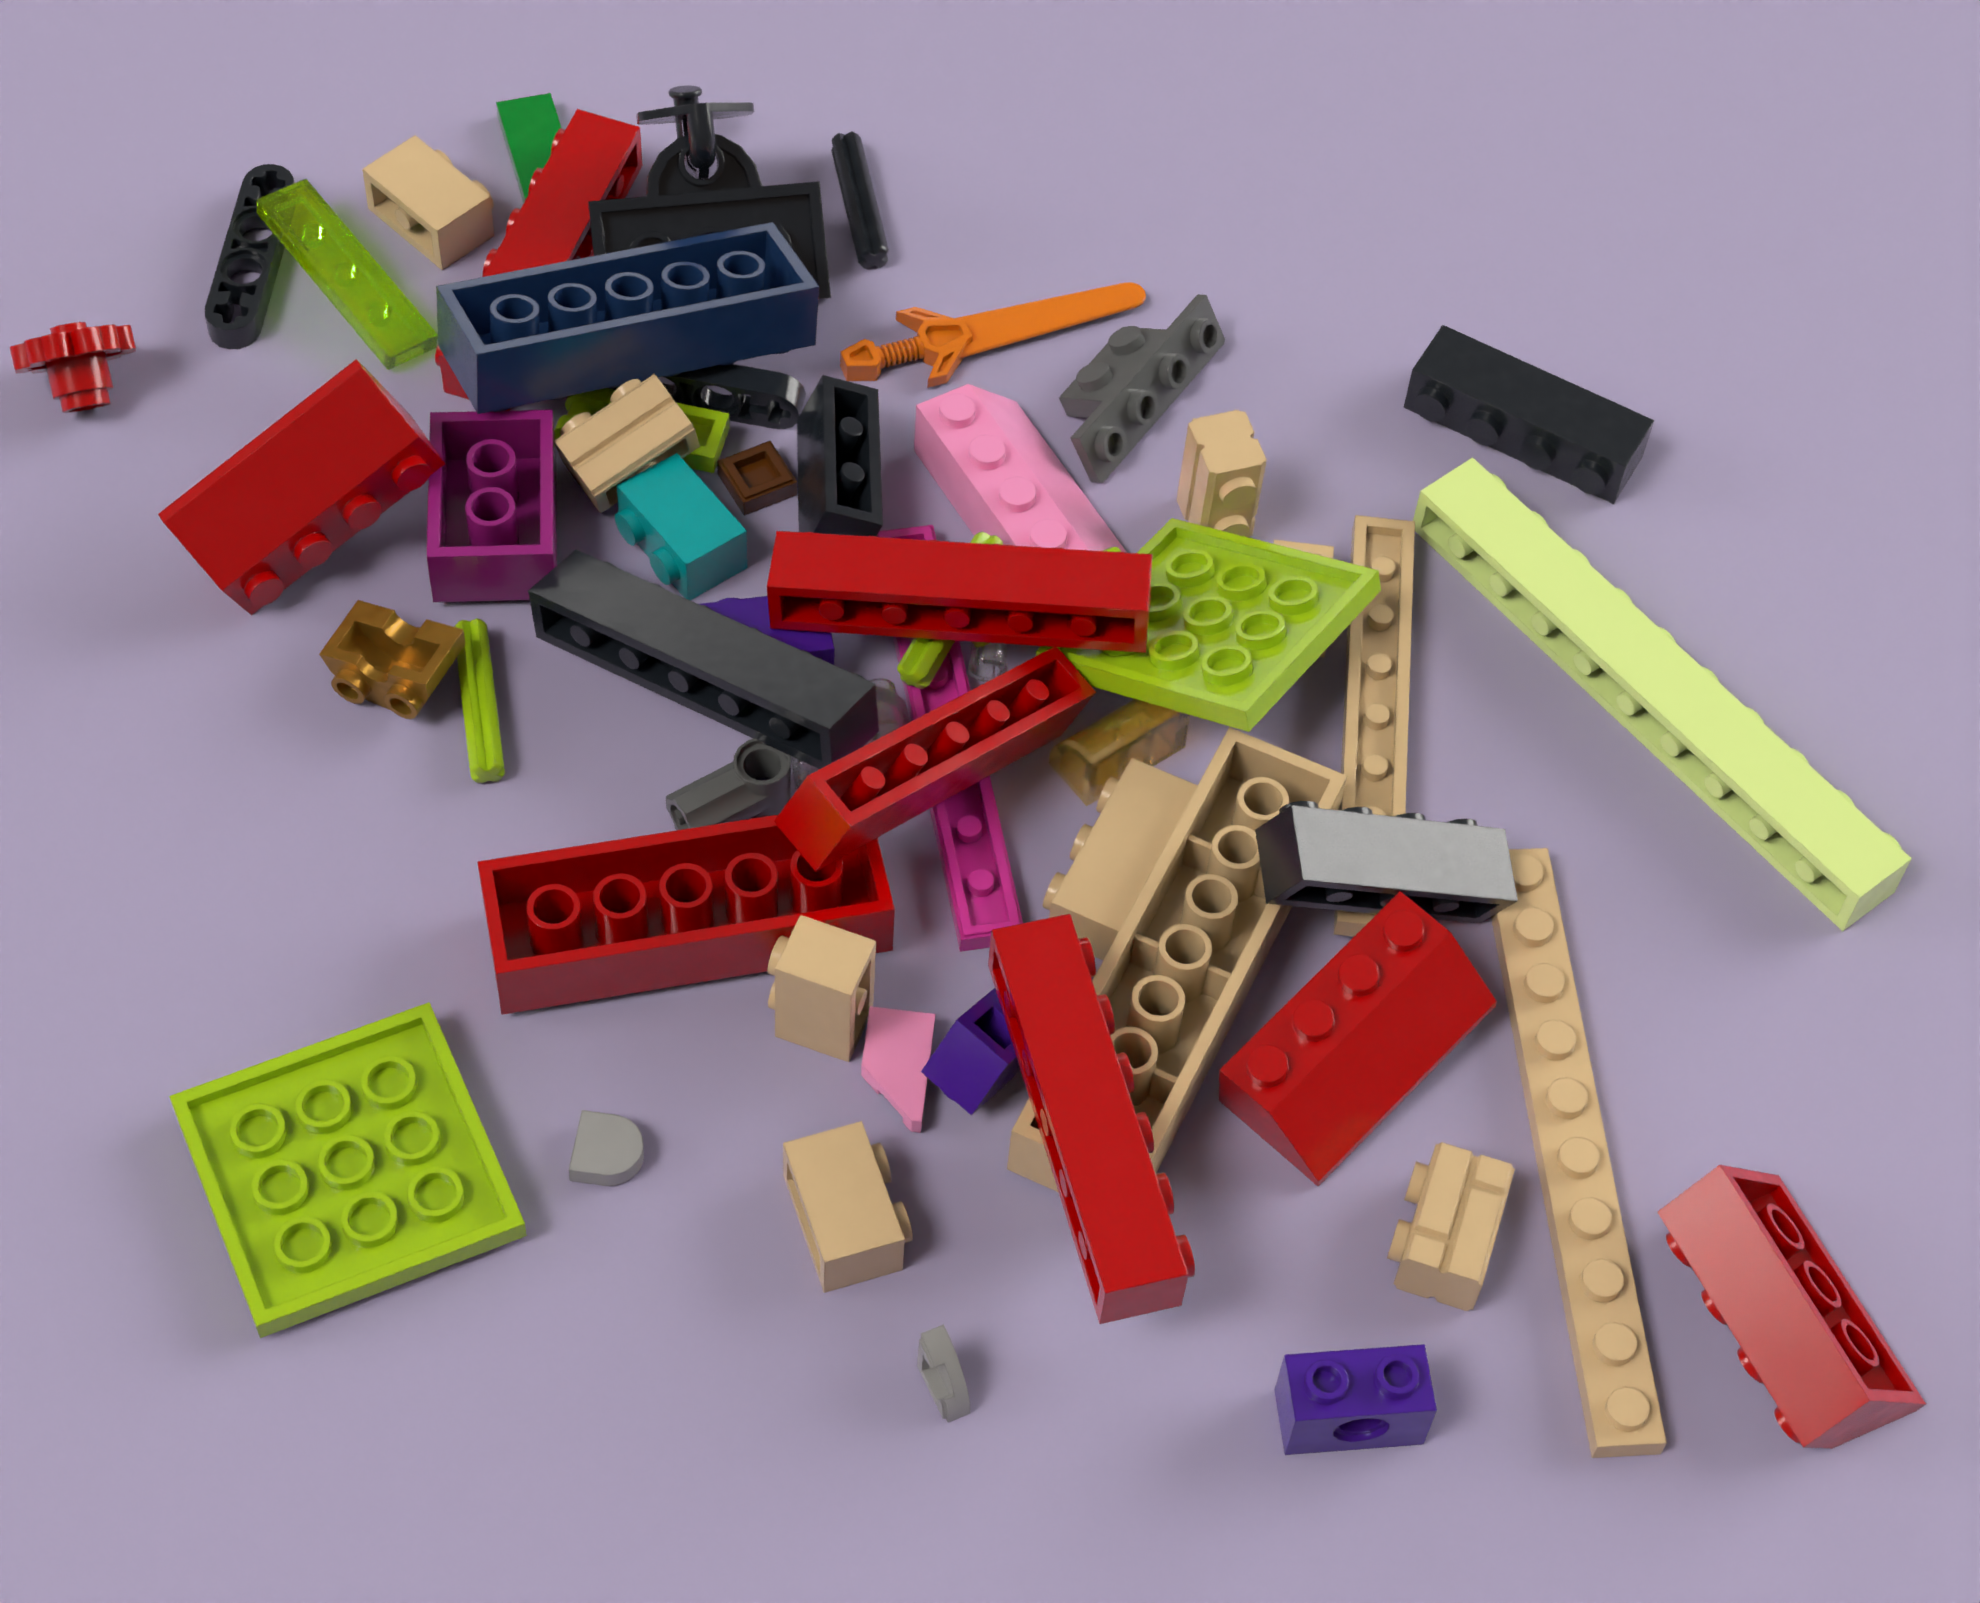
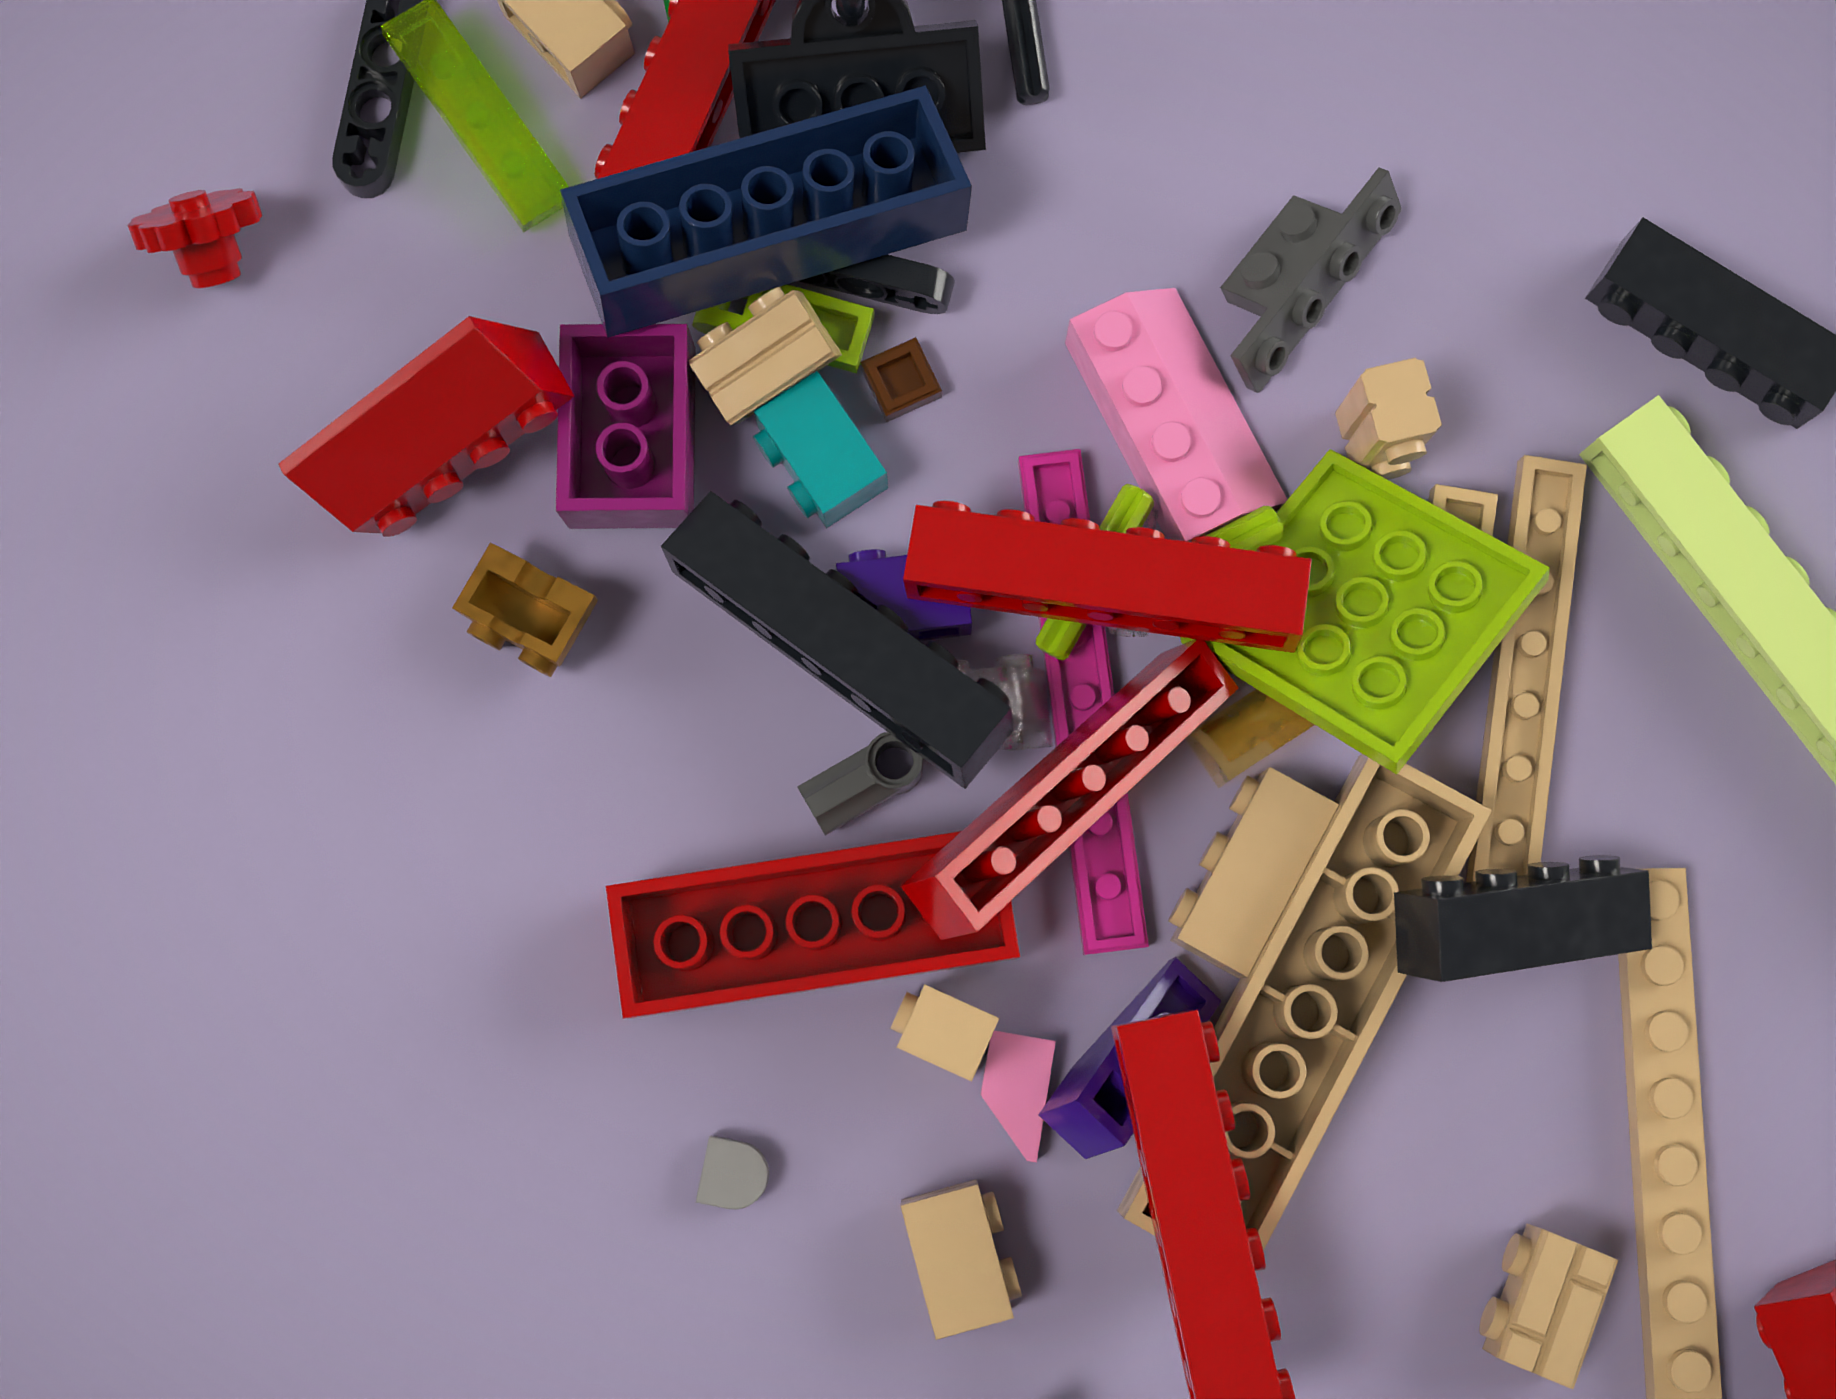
camera: 10 degrees right, 25 degrees up
(346, 1168) = (484, 1191): lime plate -> none
(479, 703) = (614, 652): lime axle -> none
(840, 460) = (986, 392): black brick -> none
(947, 340) = (1118, 202): orange sword -> none
(1356, 1039) = (1472, 1098): red slope -> none

